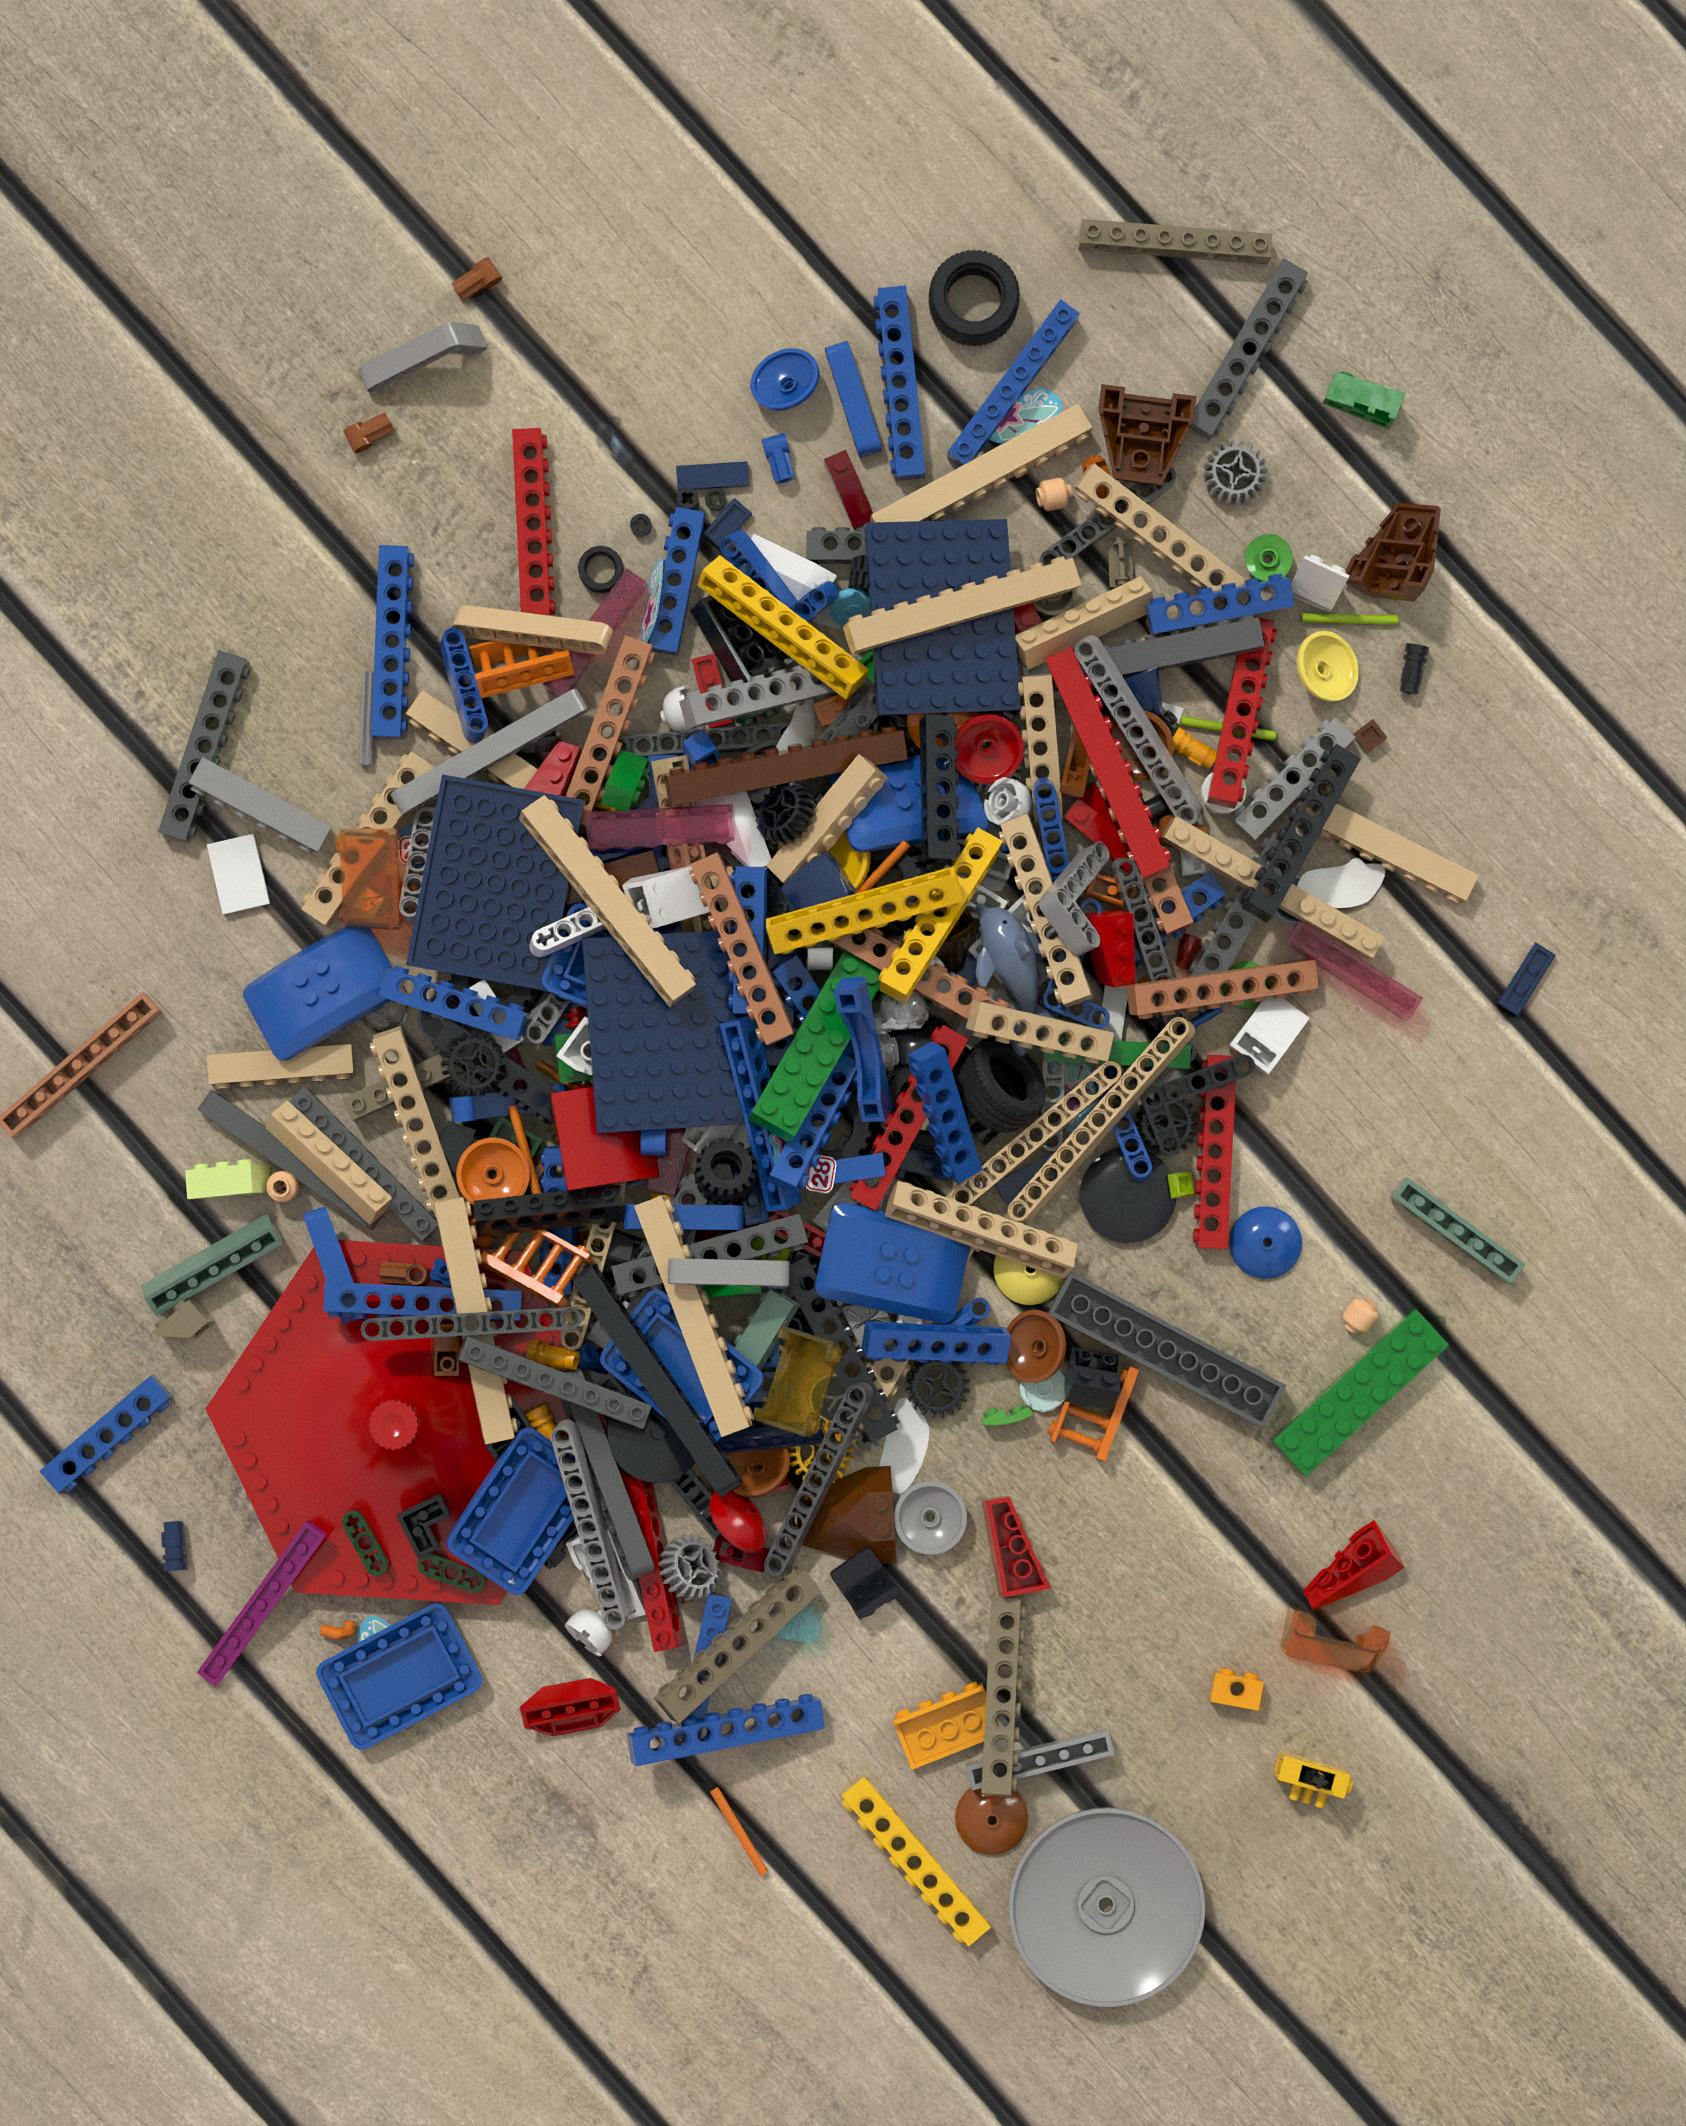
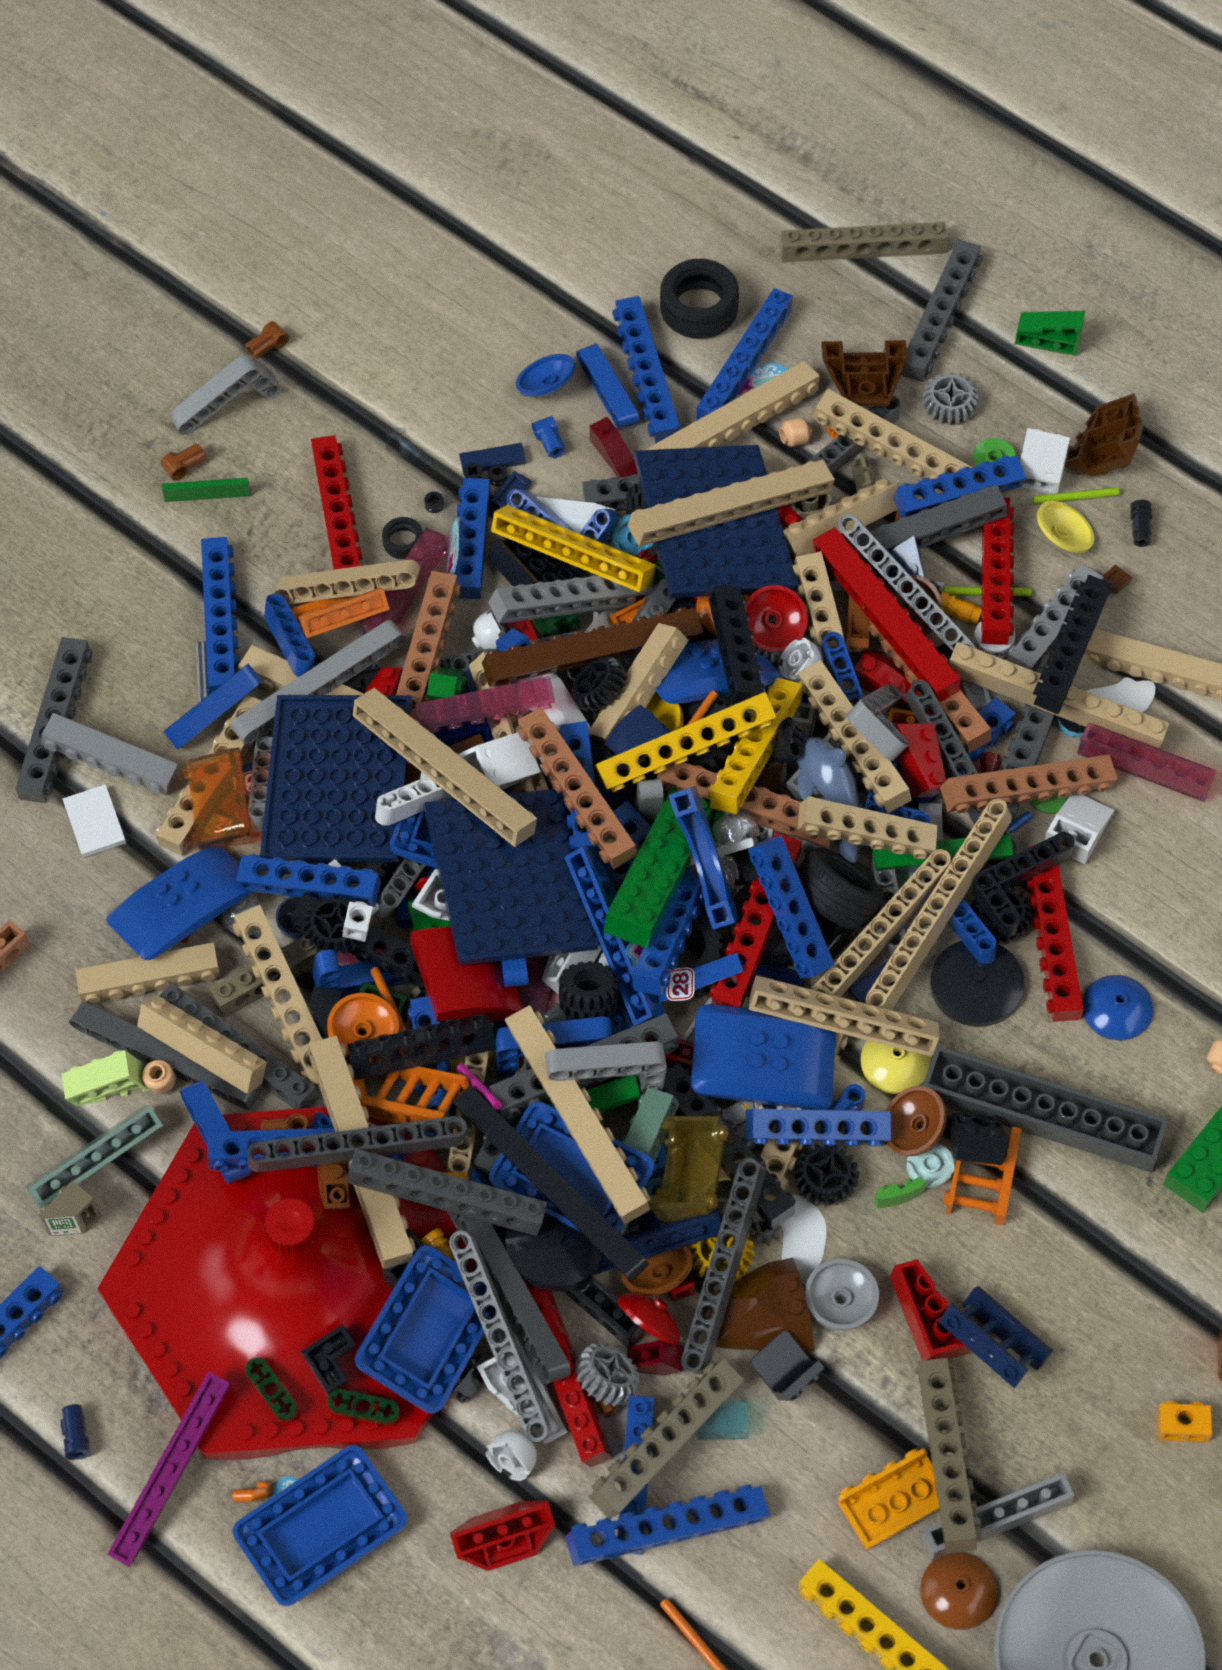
camera: 10 degrees left, 25 degrees down
(374, 761) = (212, 706): none -> blue beam
(390, 474) = (206, 489): none -> green tile
(488, 1078) = (354, 929): none -> white brick
(601, 1263) = (479, 1086): none -> dark pink bar
(976, 918) = (791, 742): none -> black piece
(1084, 1570) = (1005, 1327): none -> dark blue fence
(1181, 1184) = (1026, 964): lime tile -> none

